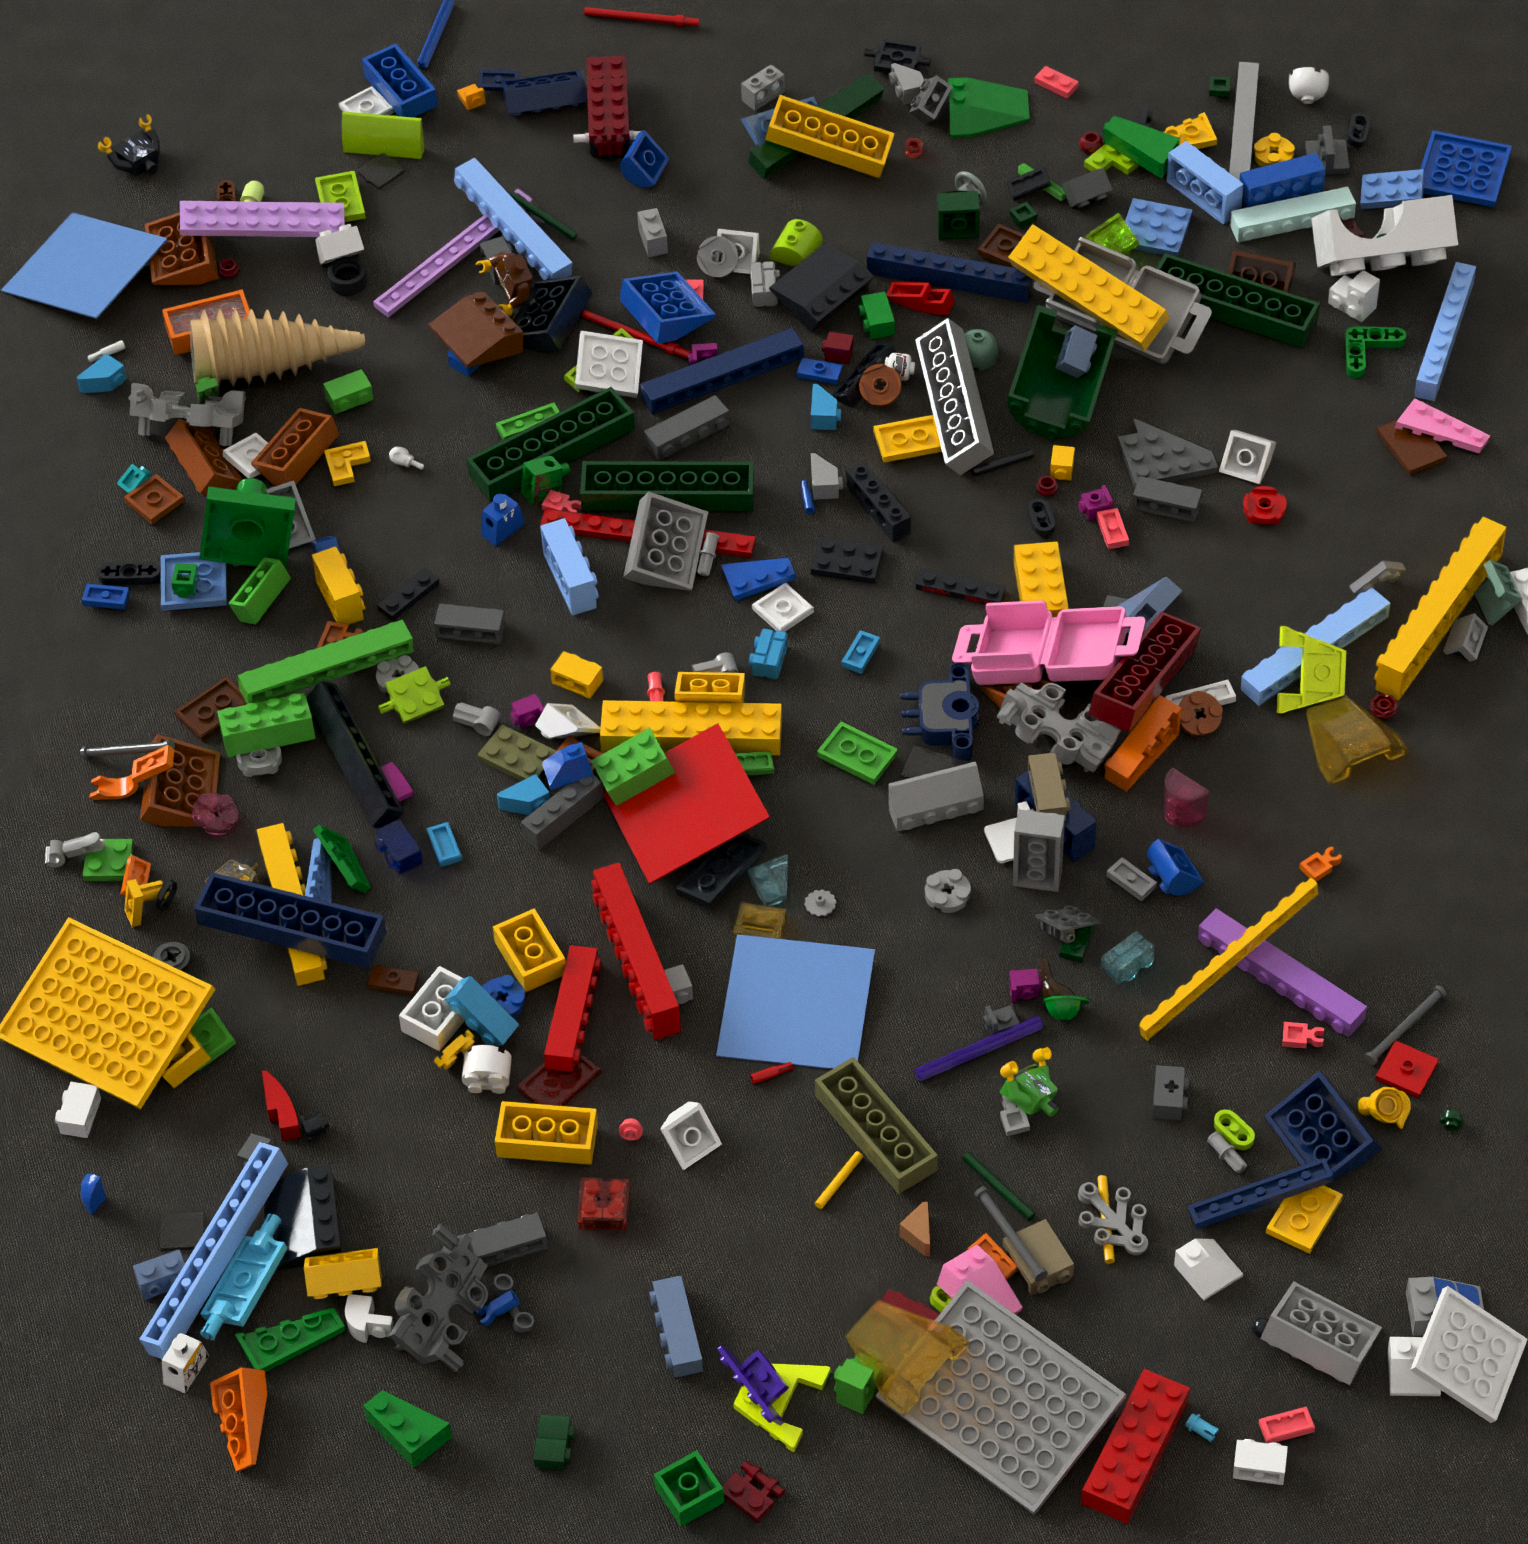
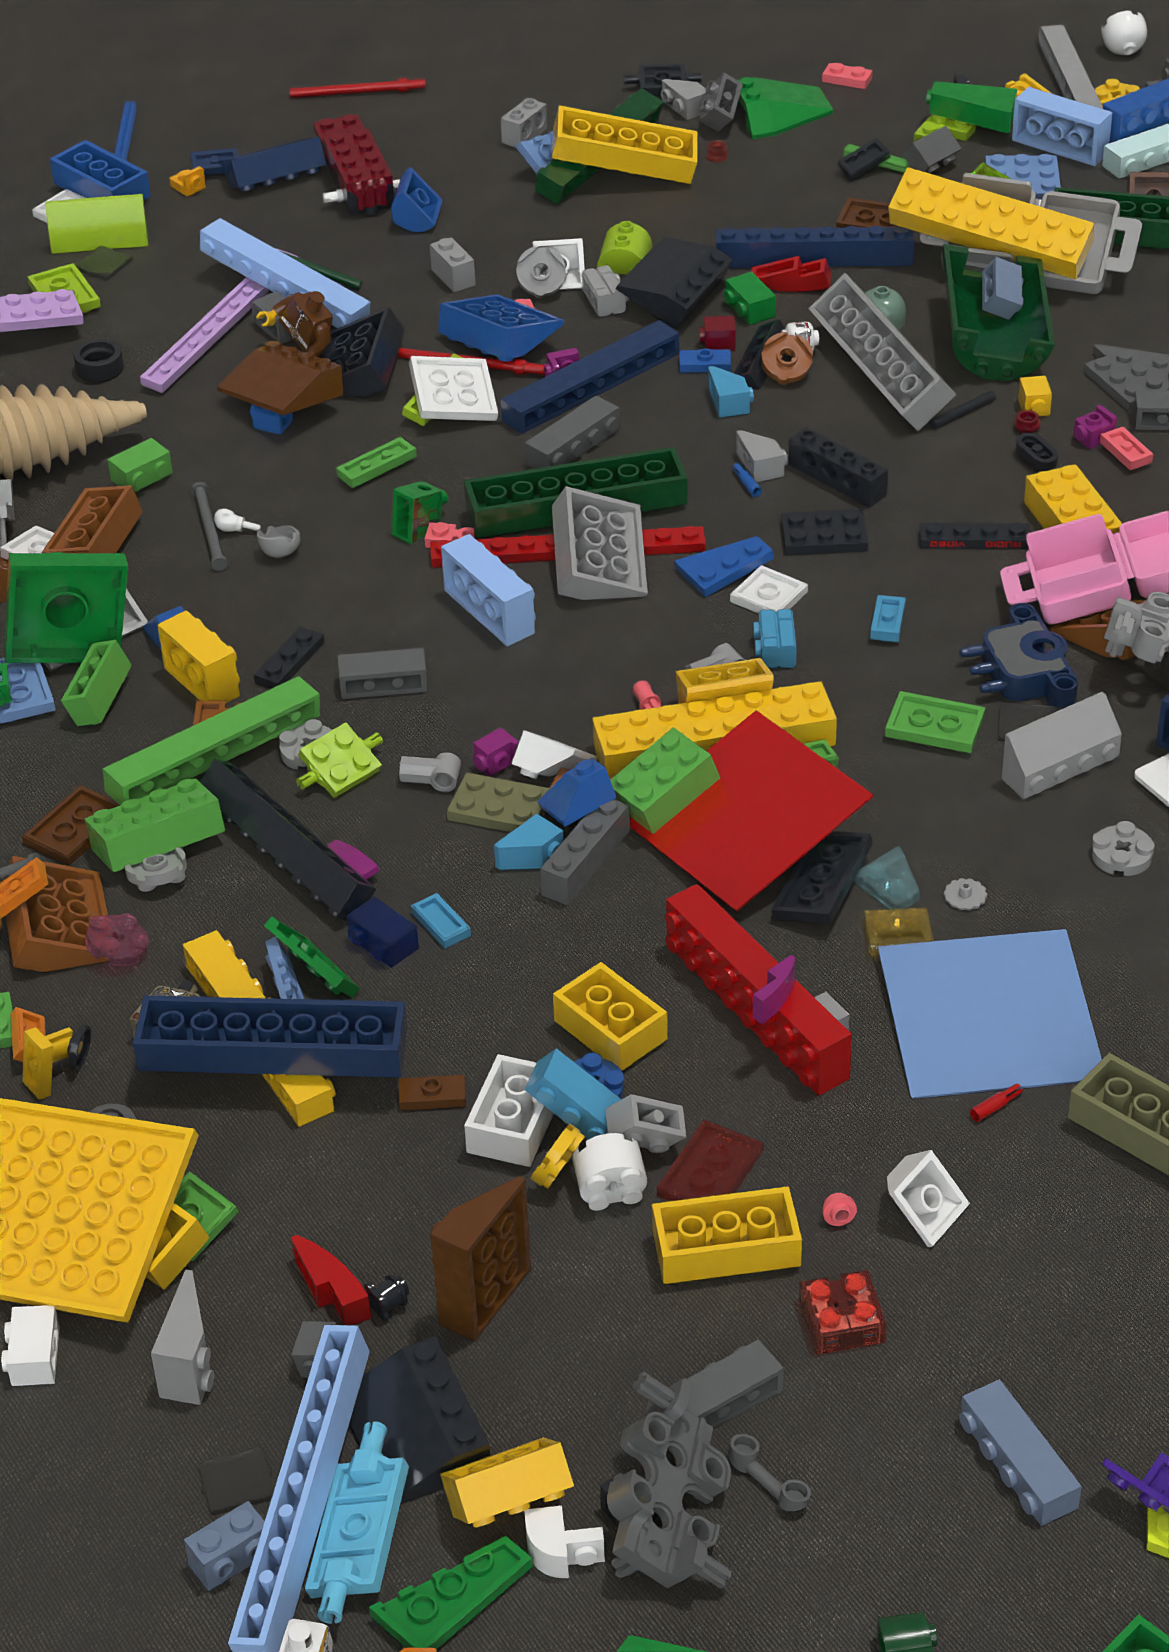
camera: 15 degrees left, 10 degrees down
(92, 1192) = (86, 1452): blue brick -> none
(170, 1134) = (181, 1350): none -> light grey slope
(338, 244) = (79, 324): white slope -> none
(342, 458) = (156, 537): yellow plate -> none
(374, 1117) = (480, 1257): none -> reddish brown slope
(382, 493) = (218, 561): none -> dark grey bar
(431, 484) = (279, 541): none -> light grey hair
(498, 1307) = (750, 1482): blue bar -> none
(501, 519) = (381, 557): blue torso -> none
(520, 1040) = (648, 1121): none -> light grey brick
(561, 436) = (438, 457): dark green brick -> none
(571, 1008) = (696, 1076): red brick -> none
(576, 674) = (542, 702): yellow brick -> none
(642, 957) = (776, 992): none -> magenta slope
(707, 554) = (654, 551): light grey axle -> none
(838, 1180) = (1150, 1215): yellow bar -> none
(907, 438) = (842, 404): yellow plate -> none
(960, 209) = (801, 190): dark green piece -> none
(1023, 214) = (870, 187): dark green plate -> none
(1090, 142) = (912, 117): dark red plate -> none
(1219, 86) = (1027, 52): dark green plate -> none

